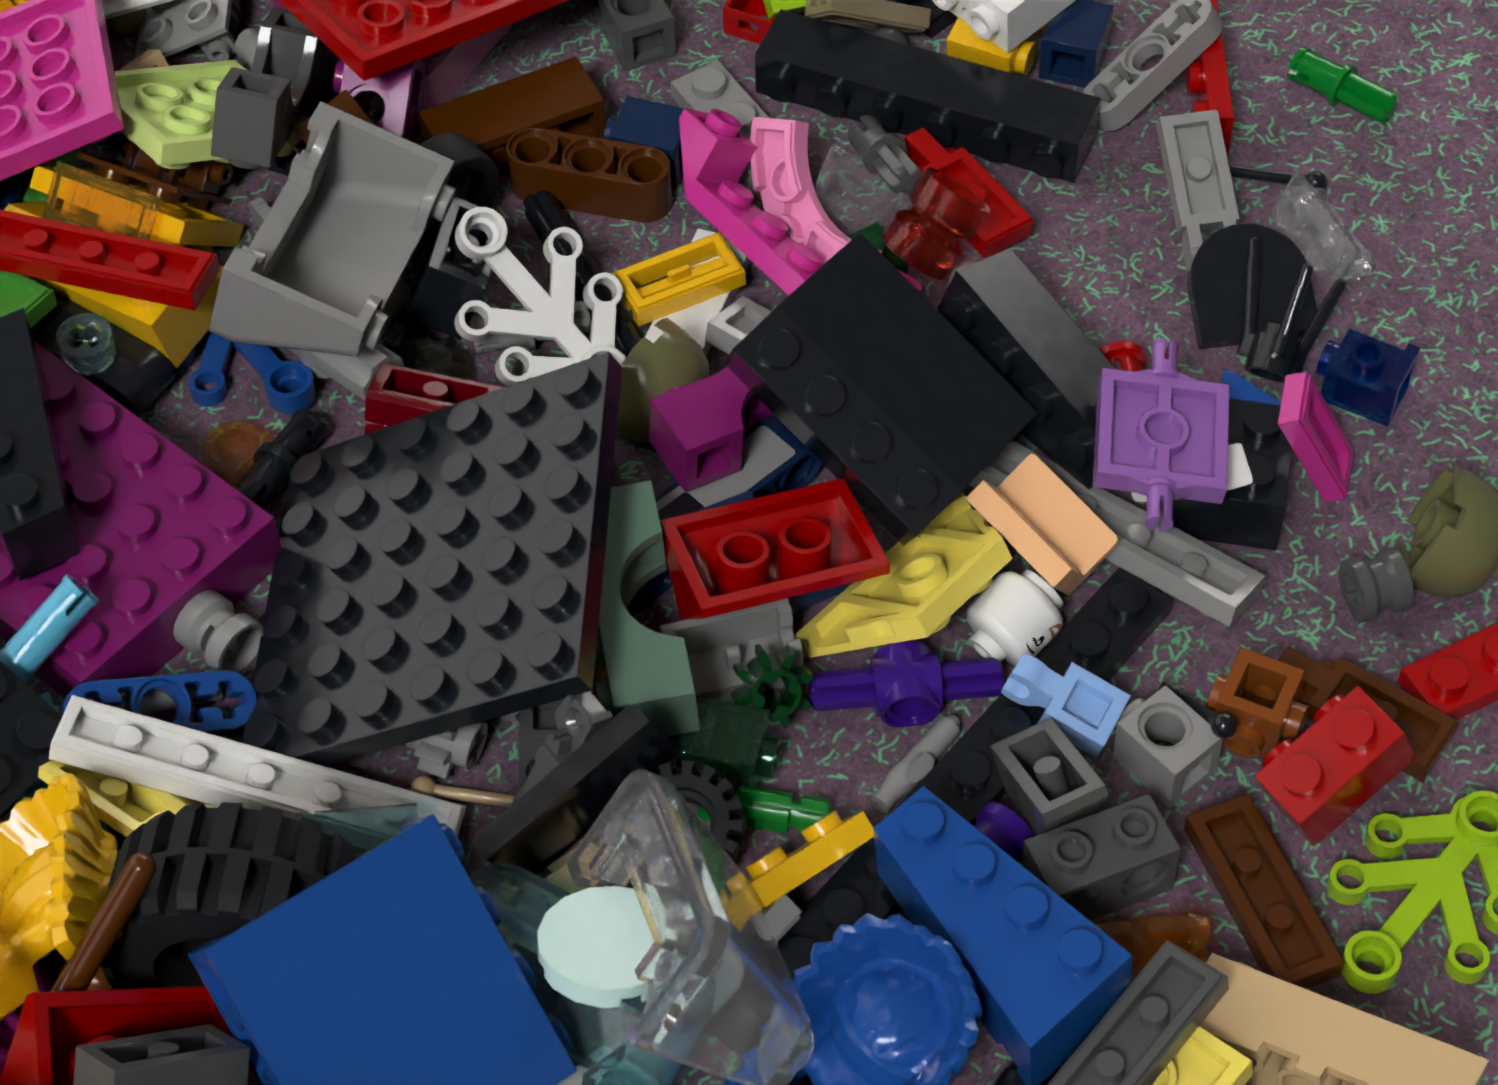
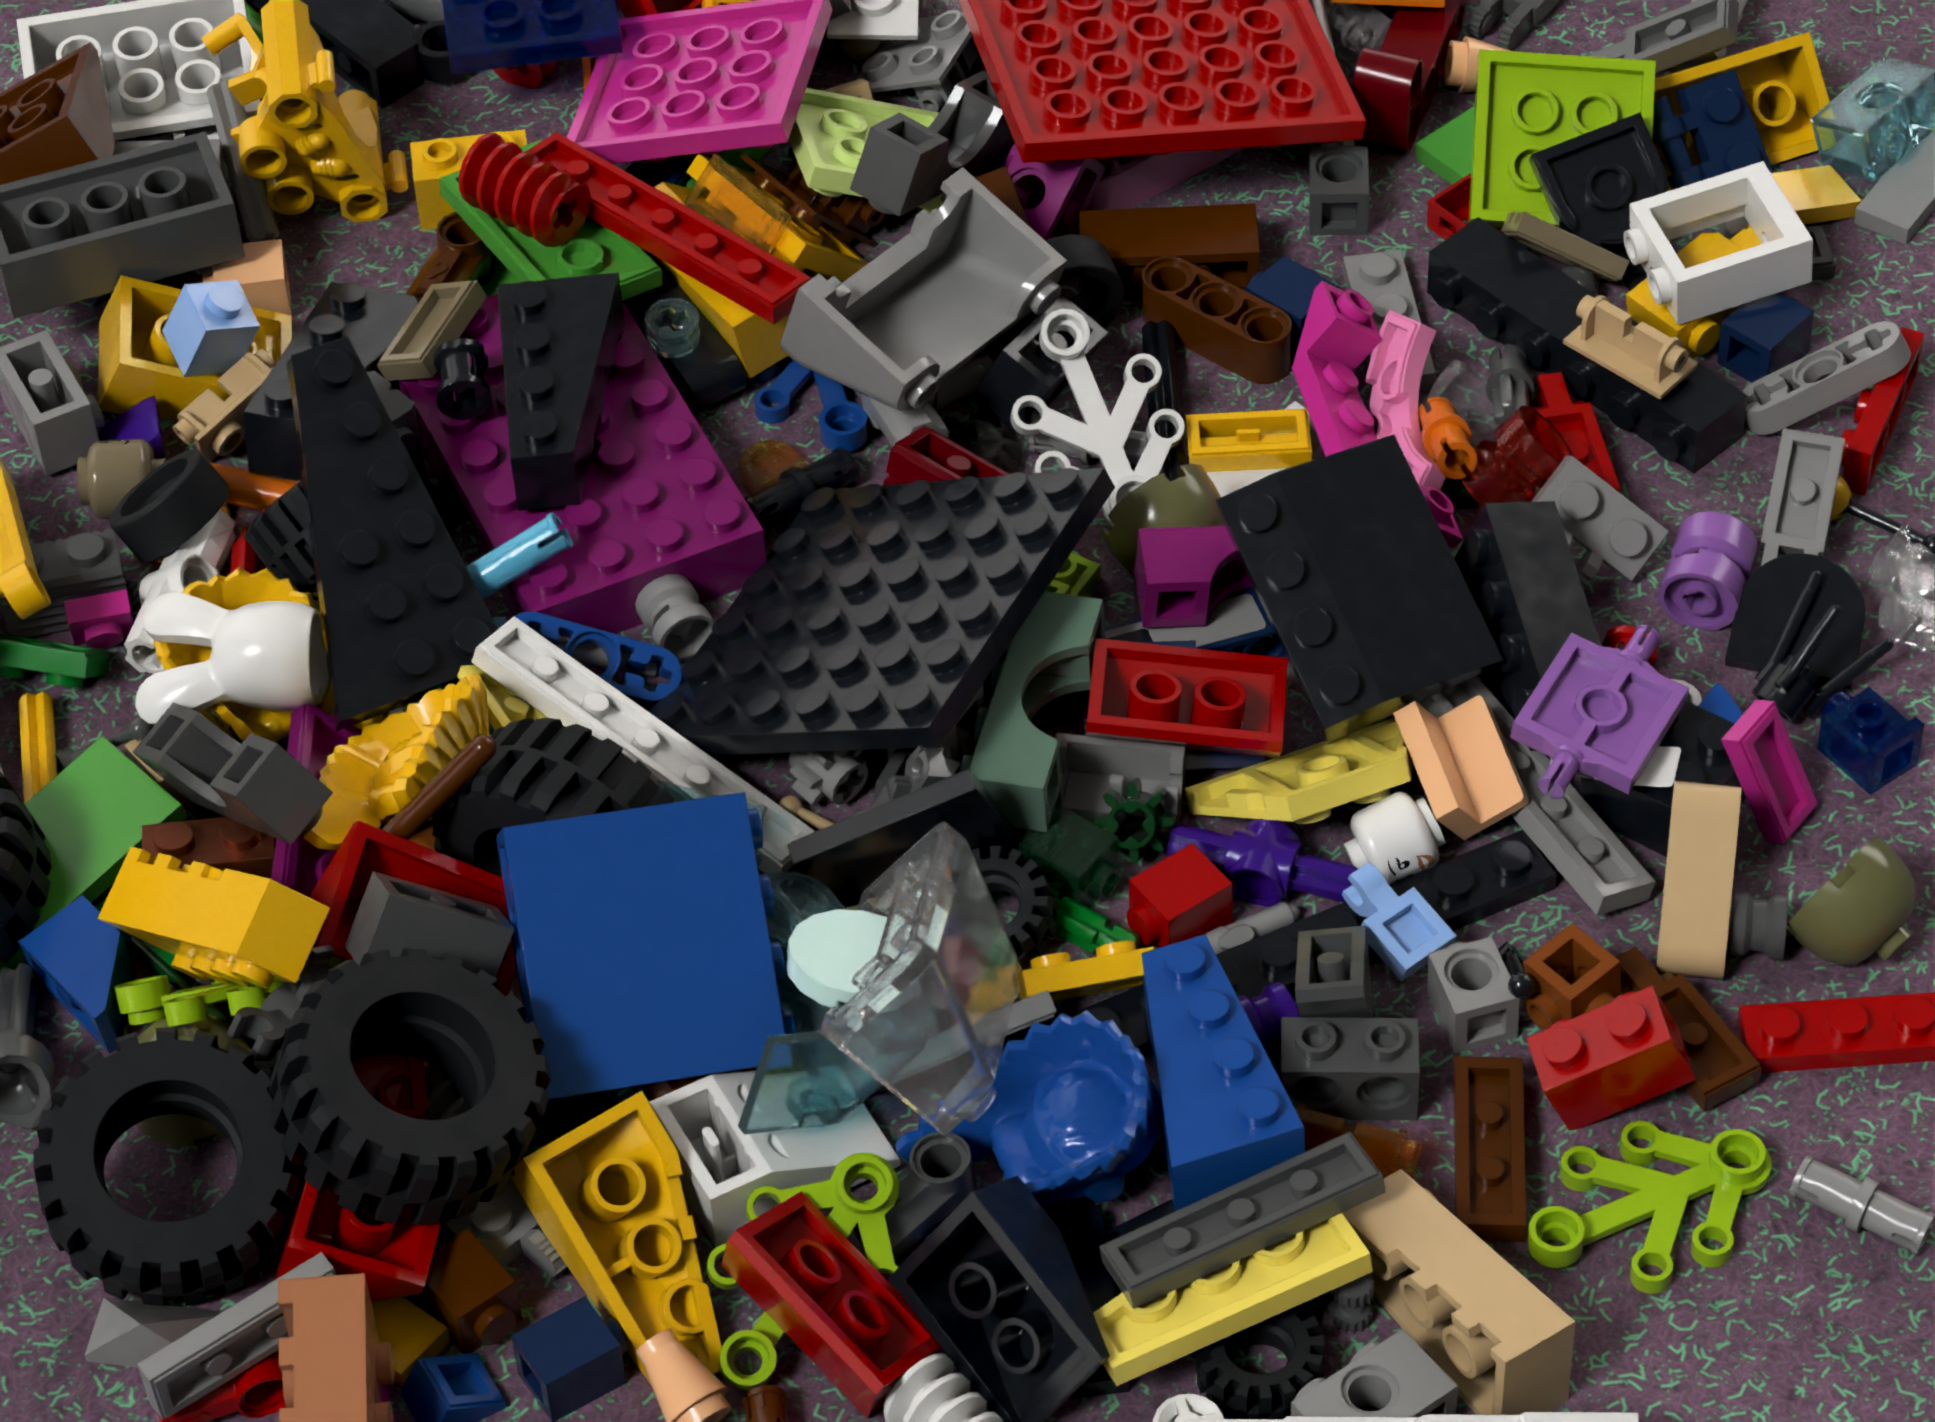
camera: 25 degrees right, 5 degrees down
(851, 752) = (1179, 899): none -> red brick
(865, 215) = (1447, 438): none -> orange pin
(1003, 91) = (1632, 352): none -> tan hinge
(1049, 251) = (1600, 521): none -> light grey hinge
(1149, 267) = (1707, 570): none -> medium lavender wheel
(1315, 562) = (1698, 879): none -> tan beam

